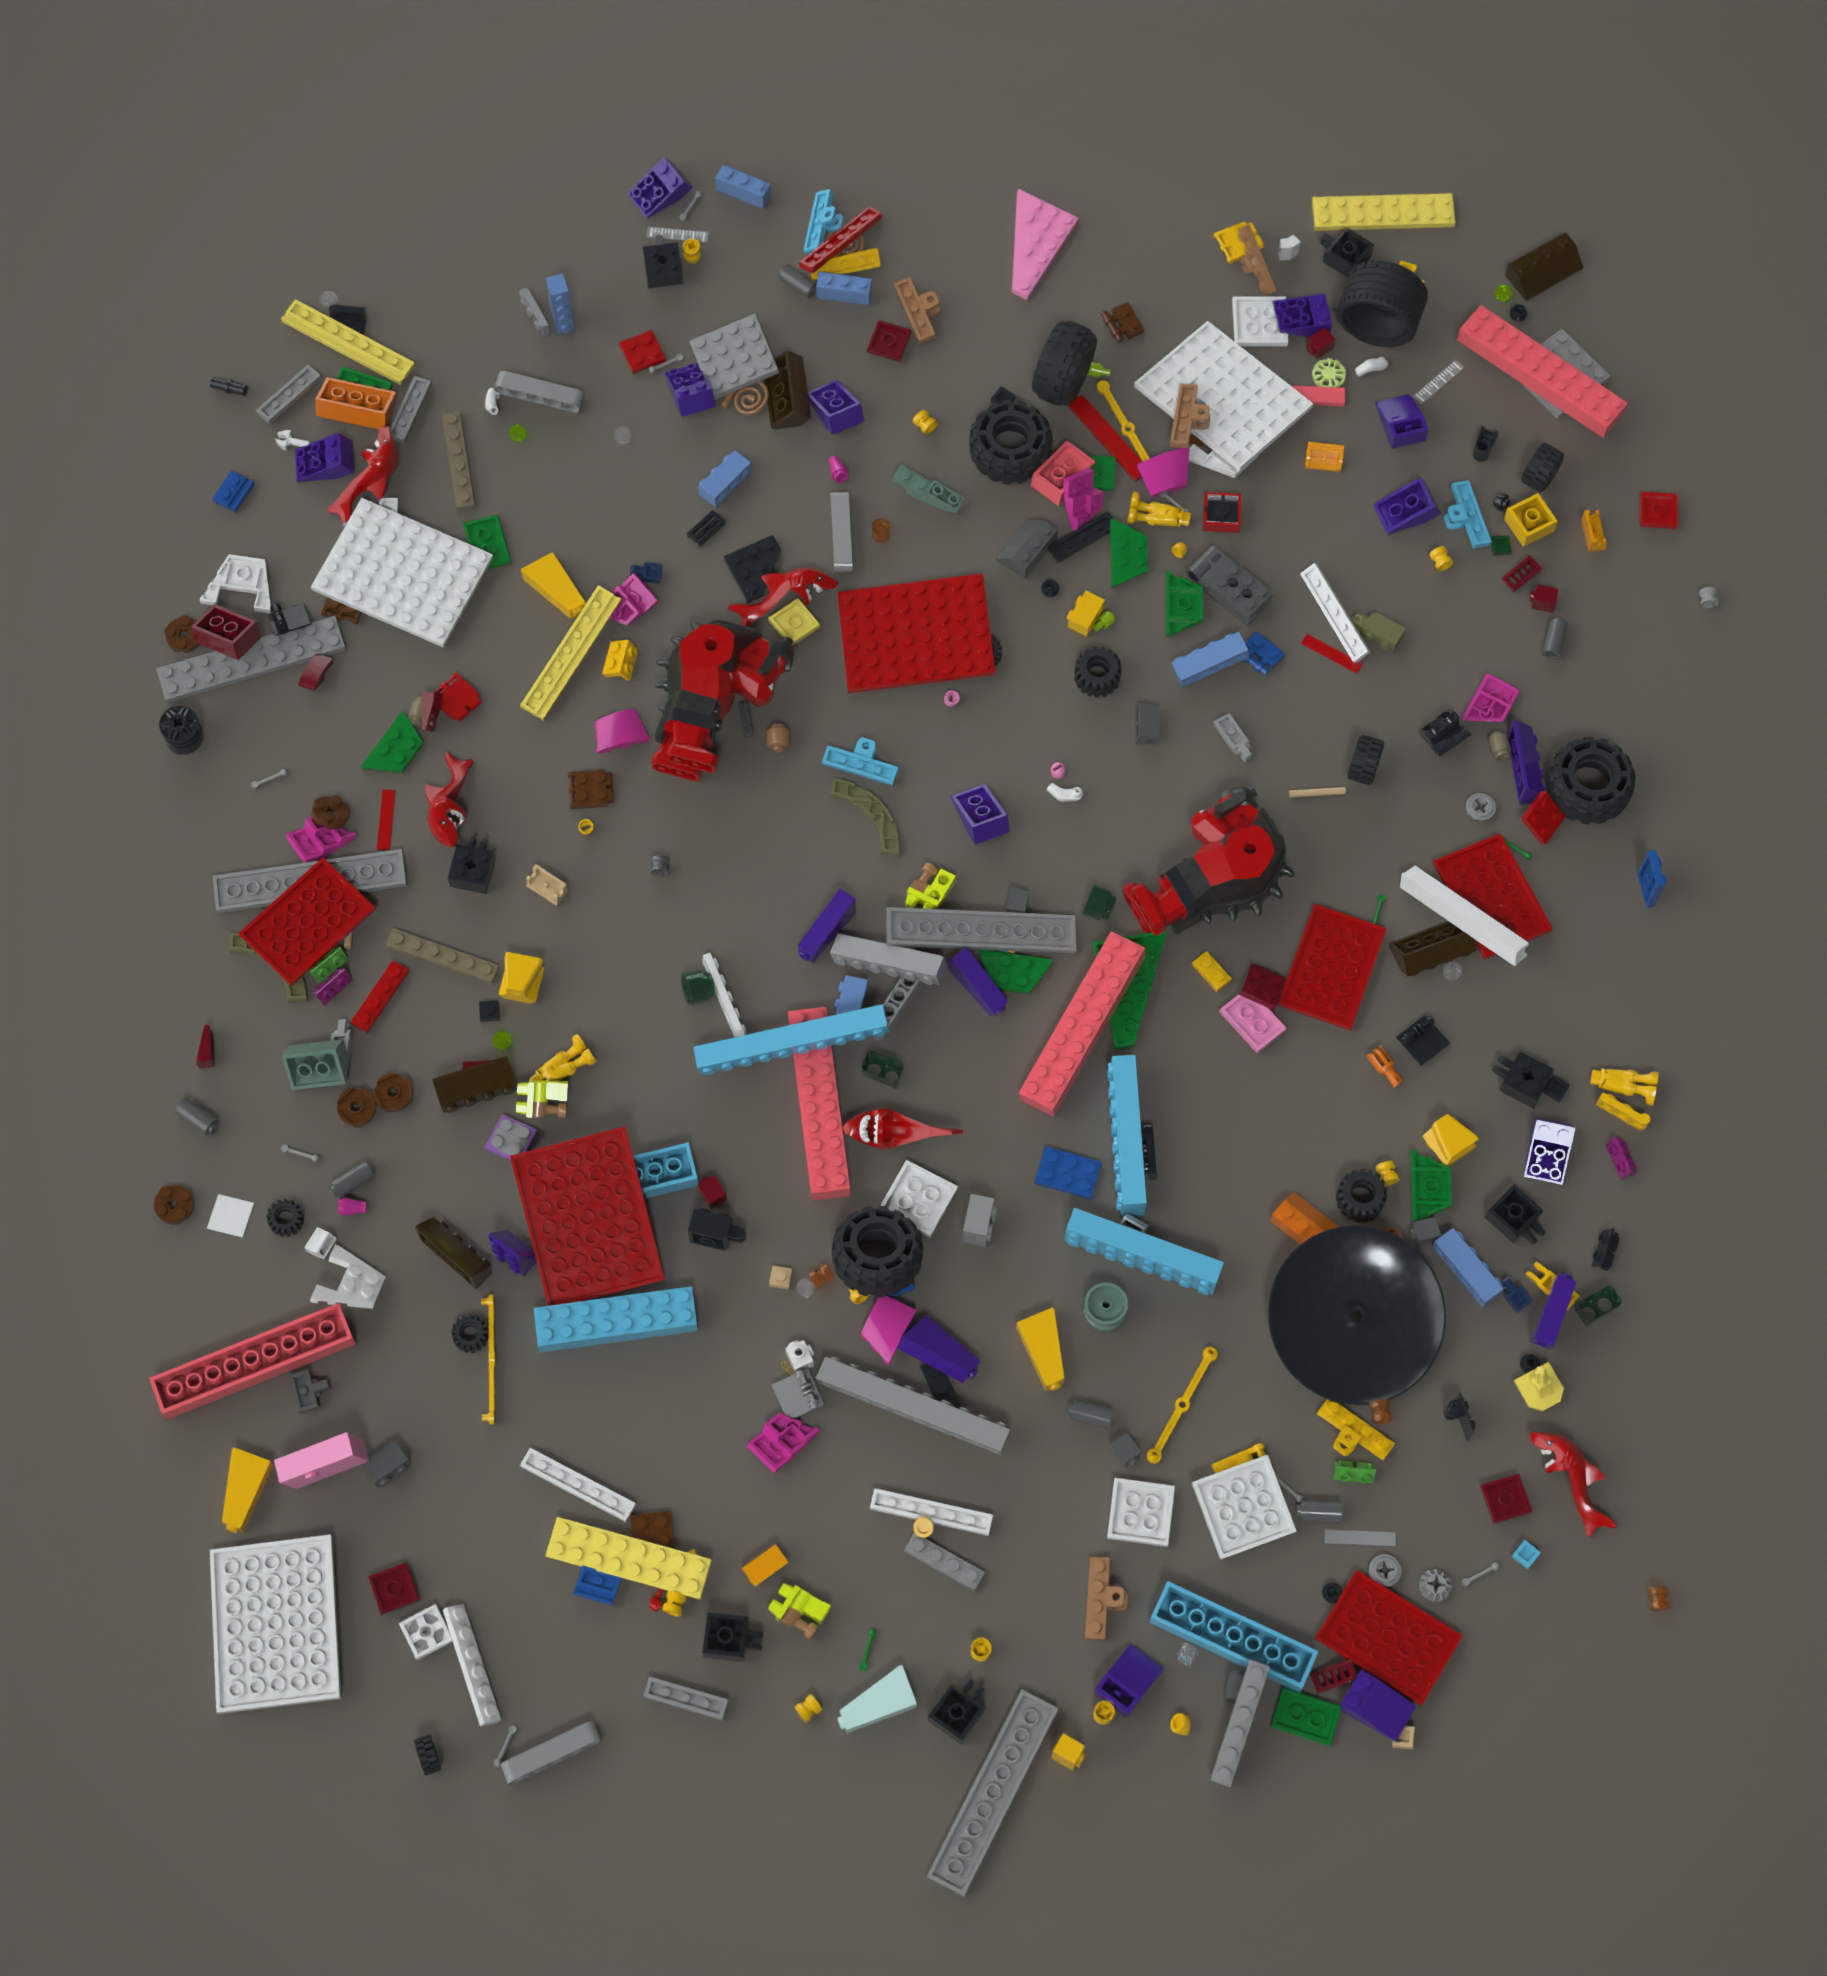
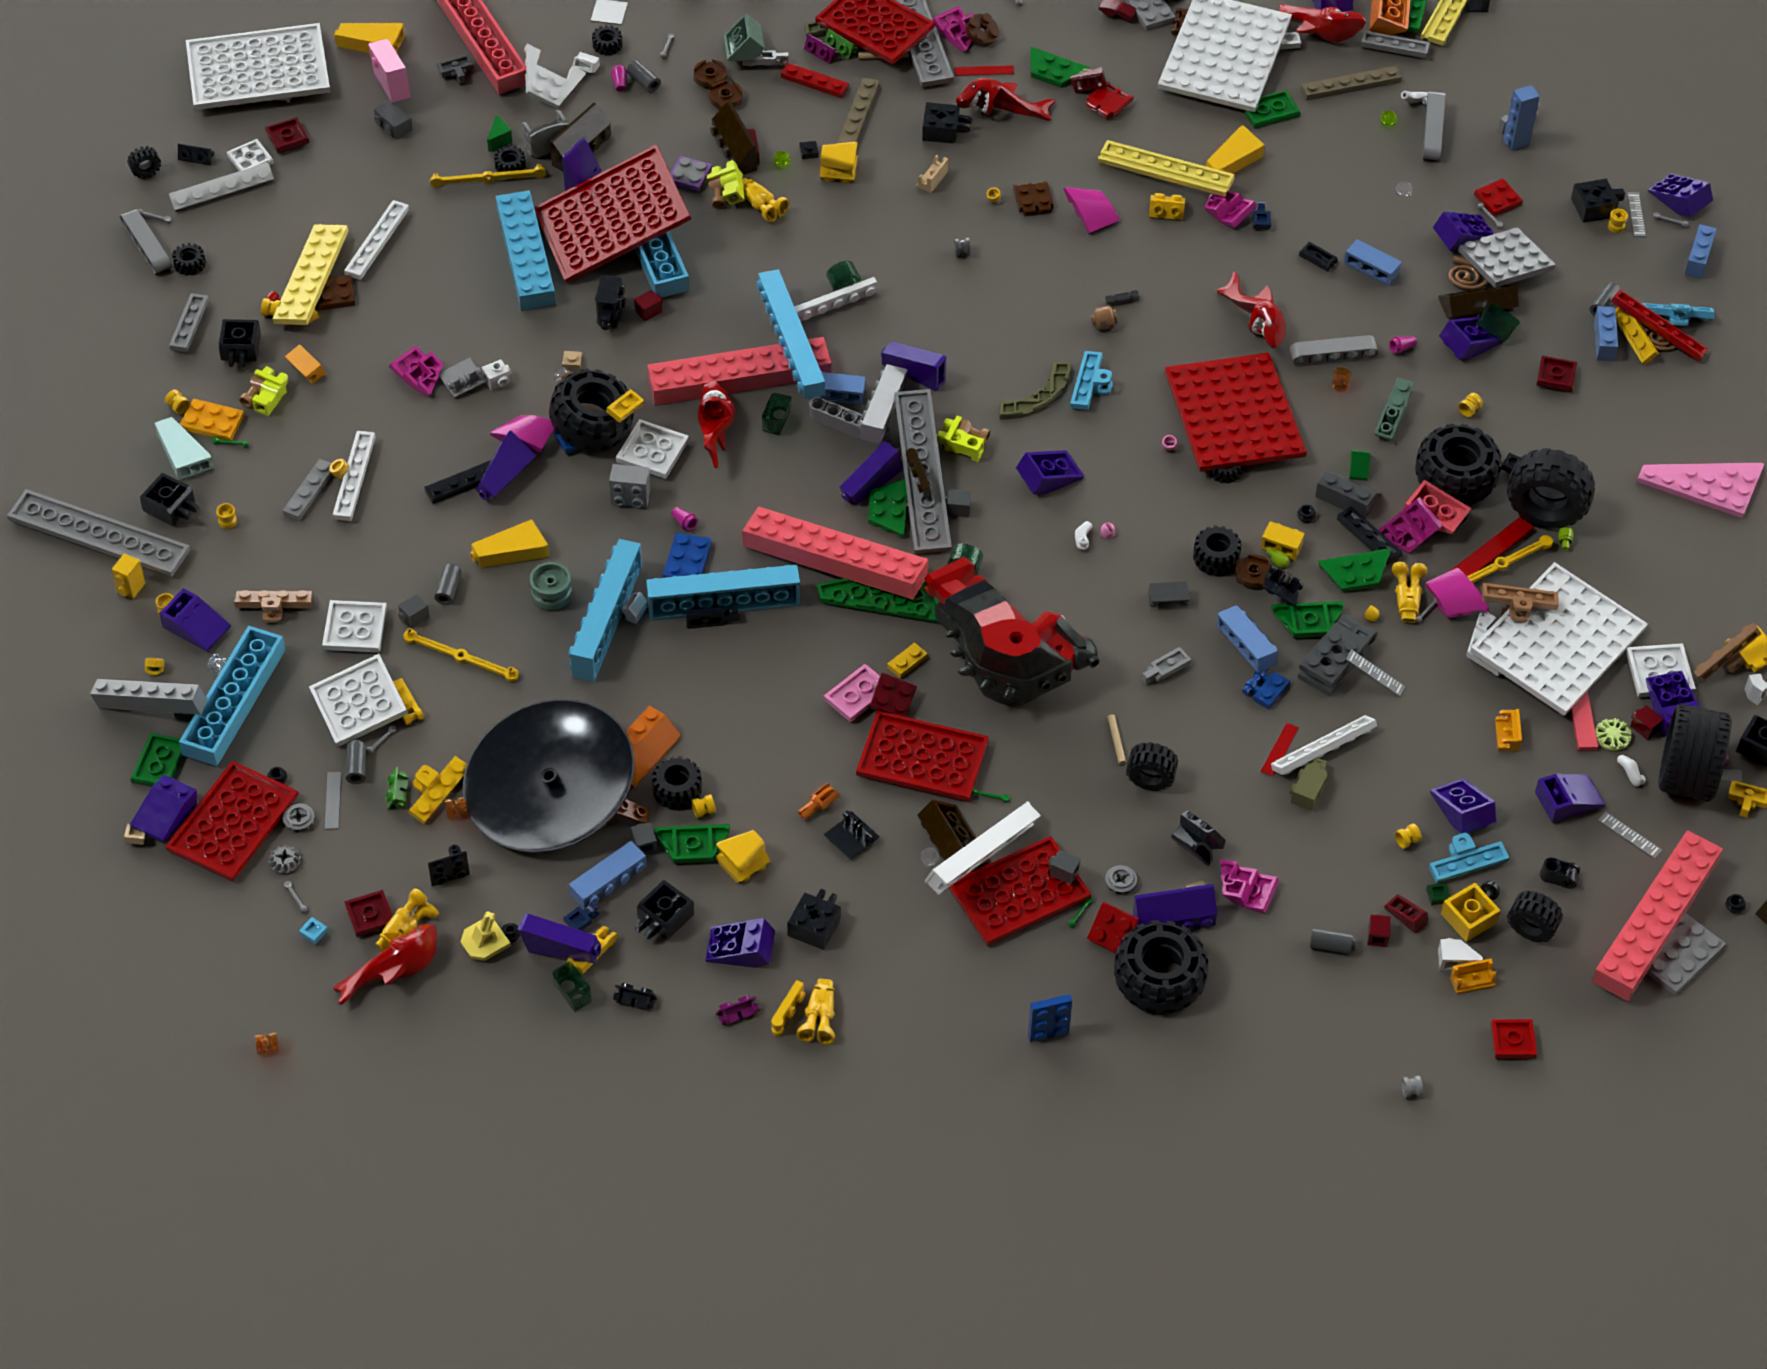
camera: 85 degrees right, 15 degrees down
(414, 1689) = (195, 154): none -> black hinge
(425, 1343) = (499, 135): none -> green slope
(443, 1287) = (538, 138): none -> light grey piece
(575, 1692) = (189, 251): none -> black tyre
(597, 1586) = (286, 258): blue plate -> none
(702, 685) = (1147, 247): red piece -> none
(750, 564) = (1287, 292): black plate -> none
(794, 621) = (1228, 323): light yellow plate -> none
(824, 377) = (1498, 322): none -> clear green piece
(833, 1670) = (212, 419): none -> light orange plate
(893, 1210) = (625, 405): none -> yellow plate
(914, 1406) = (449, 452): light grey brick -> none
(918, 308) = (1600, 391): medium nougat plate -> none
(988, 531) = (1359, 464): none -> green slope
(993, 930) = (918, 471): none -> dark brown hinge
(1017, 1171) = (686, 519): none -> dark pink cone
(1103, 472) = (1447, 546): green plate -> none
(1127, 320) = (1631, 562): reddish brown plate -> none
(1130, 641) = (1250, 579): none -> reddish brown plate
(1149, 620) = (1286, 590): none -> black hinge
(1222, 512) = (1421, 644): piece -> none
(1255, 555) = (1375, 672): none -> light grey sticker
(1344, 1681) = (201, 790): dark red slope -> none
(1477, 849) = (1064, 866): none -> dark grey brick
(1503, 293) = (1757, 888): clear neon green plate -> none
(1521, 1463) = (402, 923): none -> yellow piece
(1556, 1089) = (808, 950): black plate -> none
(1572, 540) = (1455, 952): none -> white slope

